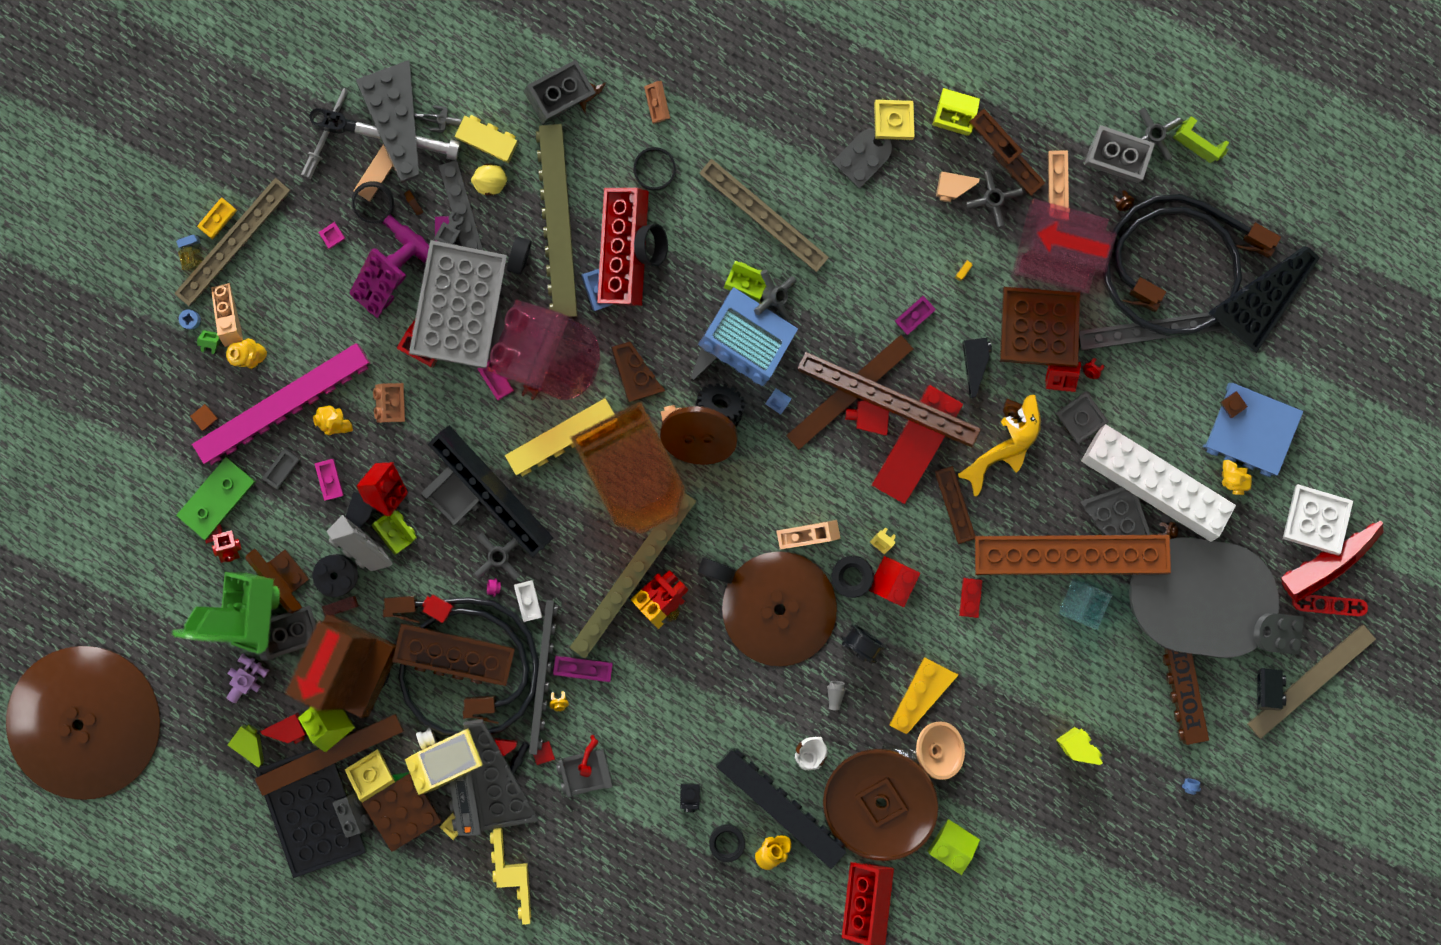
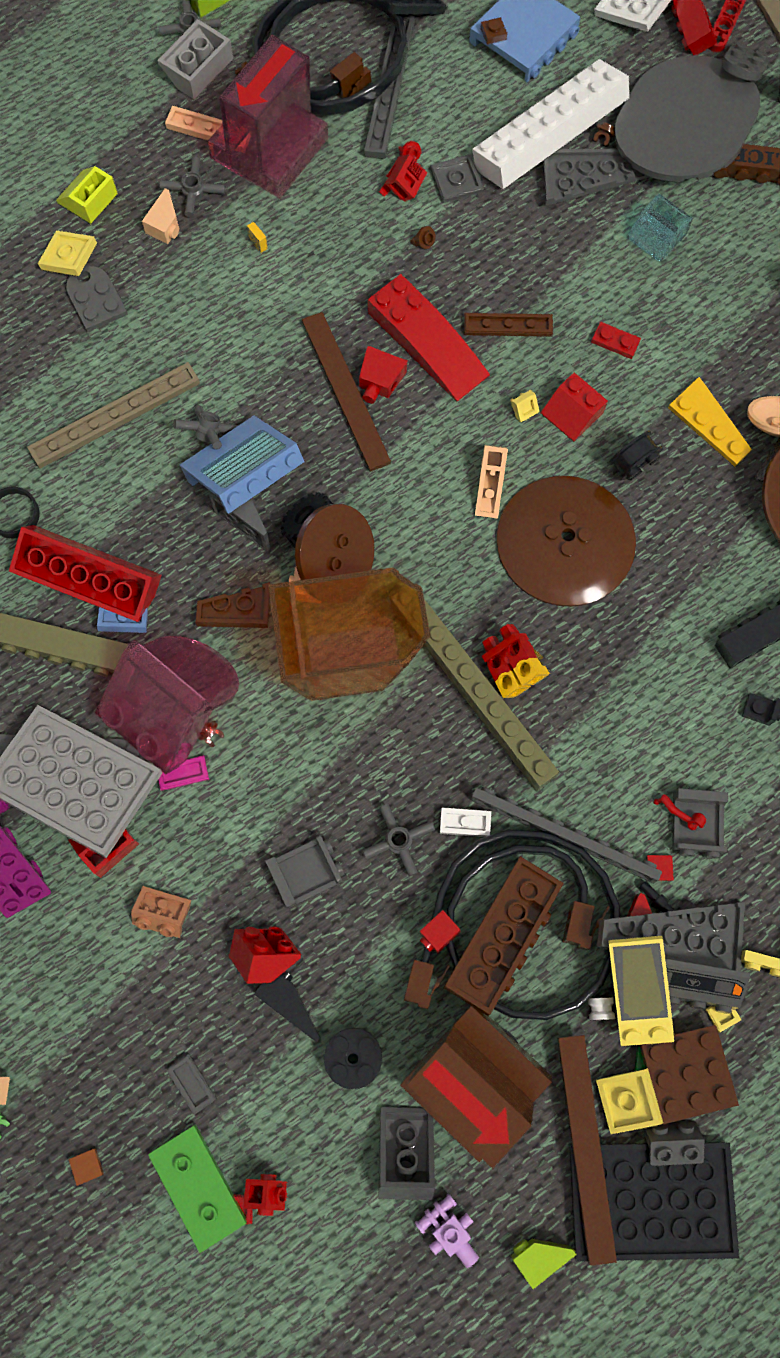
camera: 75 degrees left, 15 degrees down
(243, 614) = (365, 1201): bright green plate -> none
(246, 353) = (25, 1078): yellow head -> none
(281, 403) = (108, 1057): dark pink brick -> none
(286, 575) = (328, 1132): reddish brown plate -> none
(286, 730) = (536, 1196): red slope -> none
(325, 727) = (549, 1139): lime slope -> none
(329, 479) = (228, 1023): dark pink plate -> none
(331, 420) = (154, 993): yellow head -> none
(340, 606) = (395, 1066): clear red piece -> none
(358, 545) = (324, 1010): light grey slope -> none
(394, 532) = (323, 959): lime bracket -> none
(490, 491) = (314, 820): black brick -> none
(493, 587) = (434, 856): dark pink plate -> none
(519, 255) = (45, 691): black tyre -> none
(556, 439) = (281, 721): light yellow brick -> none
(558, 704) = (604, 828): yellow plate -> none
(583, 668) = (569, 784): magenta plate -> none
(661, 245) = (94, 538): black tyre -> none
(717, 570) = (500, 587): black tyre -> none
(746, 280) = (176, 451): lime bracket -> none
(778, 401) = (328, 464): medium blue plate -> none
(811, 753) = (747, 554): white hair -> none
(835, 694) = (685, 509): light grey cone -> none
(867, 576) = (549, 431): black tyre -> none
(889, 399) = (368, 341): reddish brown plate -> none
(915, 315) = (286, 299): magenta plate -> none
(976, 359) = (358, 254): black slope -> none
(1007, 152) = (148, 154): reddish brown bracket -> none
(1011, 450) = (456, 233): yellow piece -> none
(1040, 327) = (346, 181): reddish brown plate -> none
(1072, 555) = (602, 222): dark orange plate -> none
(1235, 478) = (569, 57): yellow head -> none

